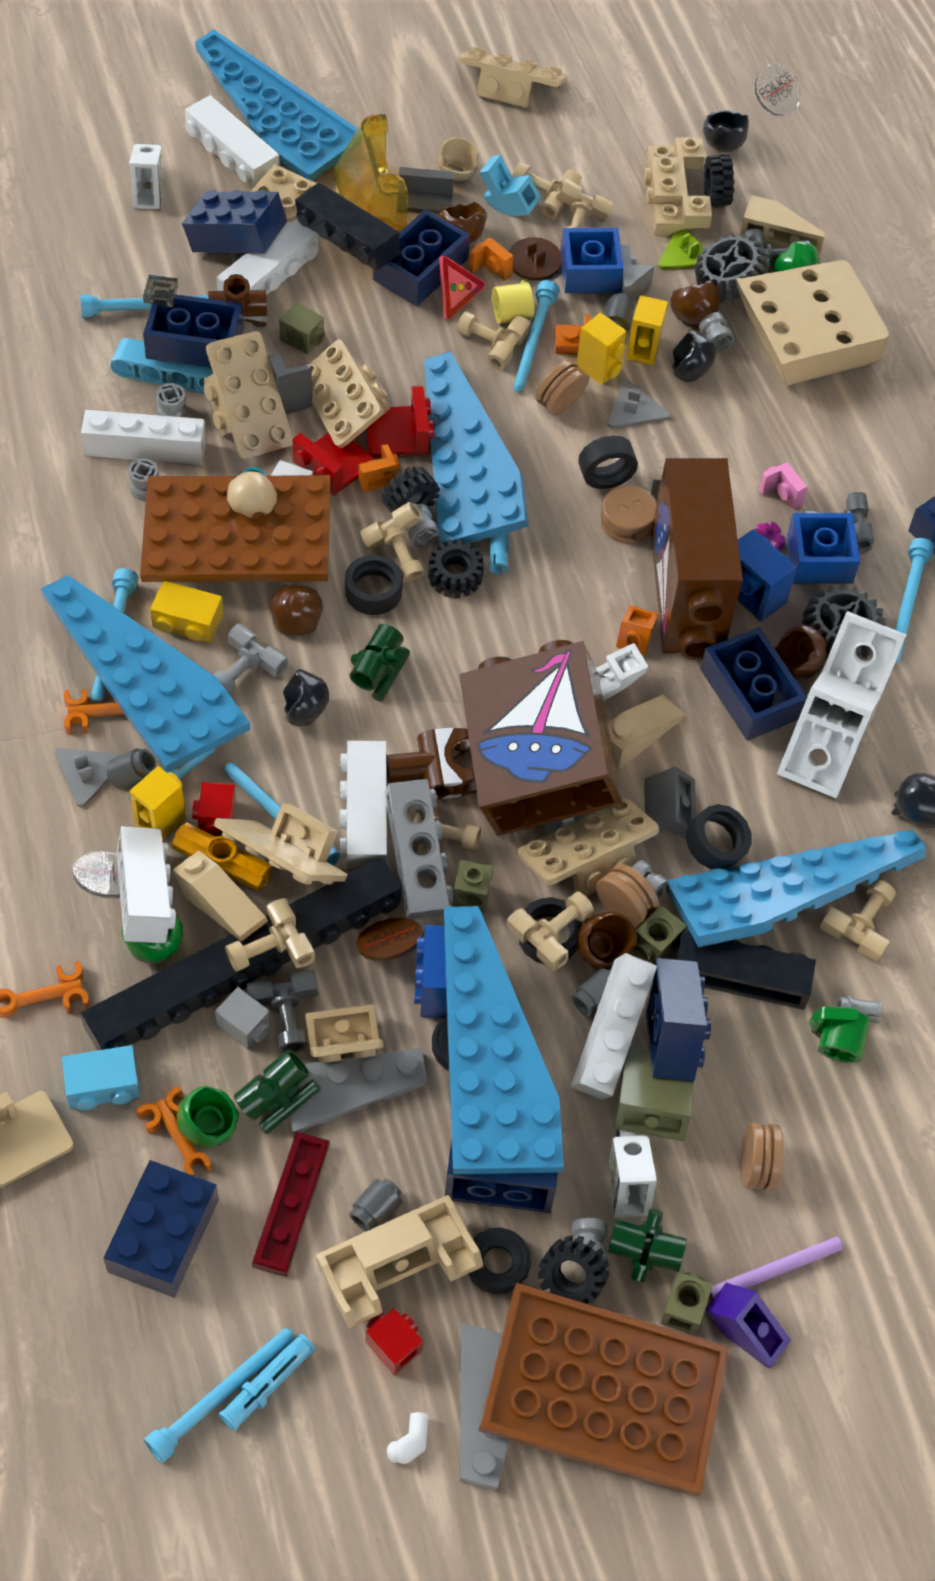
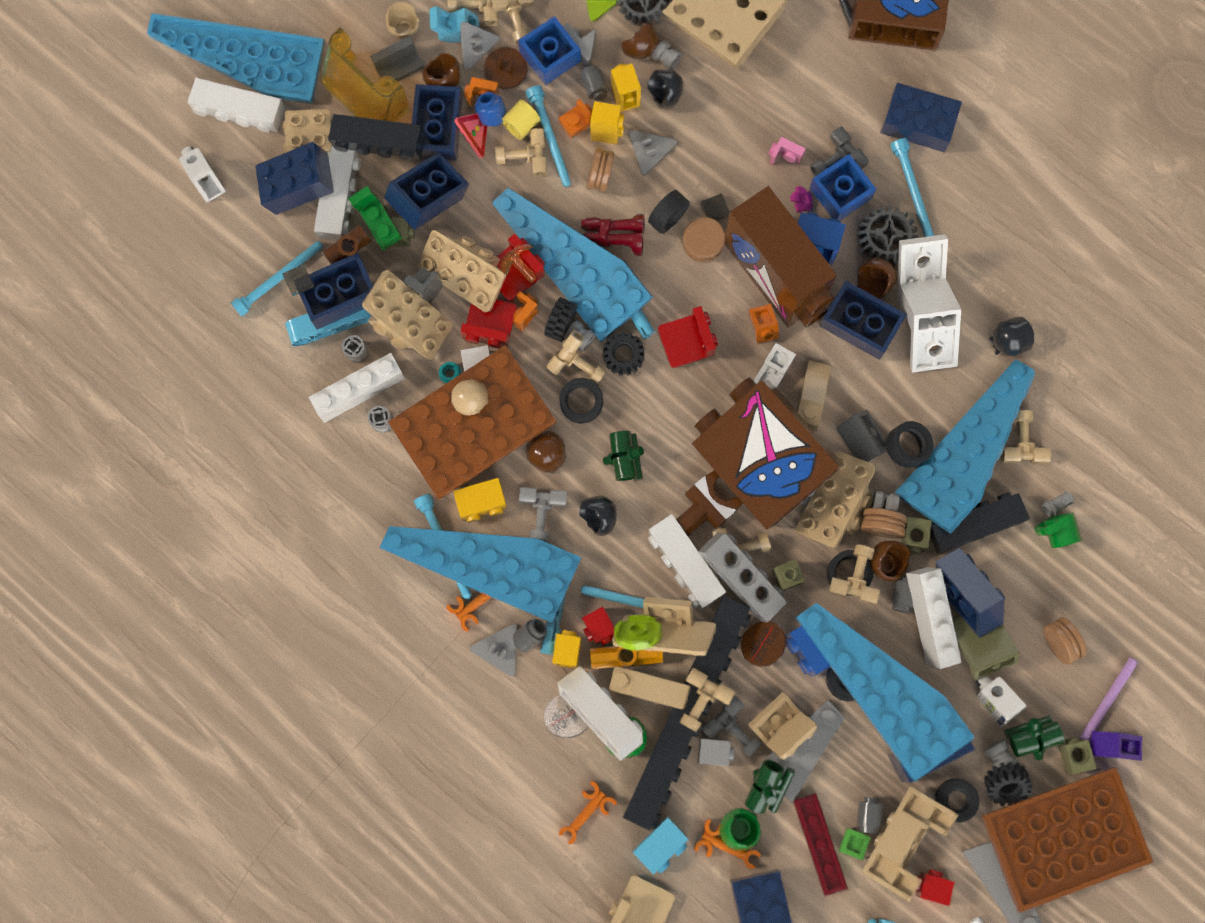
camera: 25 degrees left, 20 degrees up
(252, 828) = (638, 632): none -> lime tile
(291, 293) = (376, 217): none -> green bracket
(333, 1225) = (854, 844): none -> bright green plate
(361, 302) = (426, 190): none -> dark blue brick
(400, 409) = (512, 257): none -> clear orange plant
(486, 274) = (490, 109): none -> blue head
(518, 216) = (475, 43): none -> light grey piece
(539, 595) = (688, 338): none -> red bracket
(559, 460) = (604, 226): none -> dark red piece

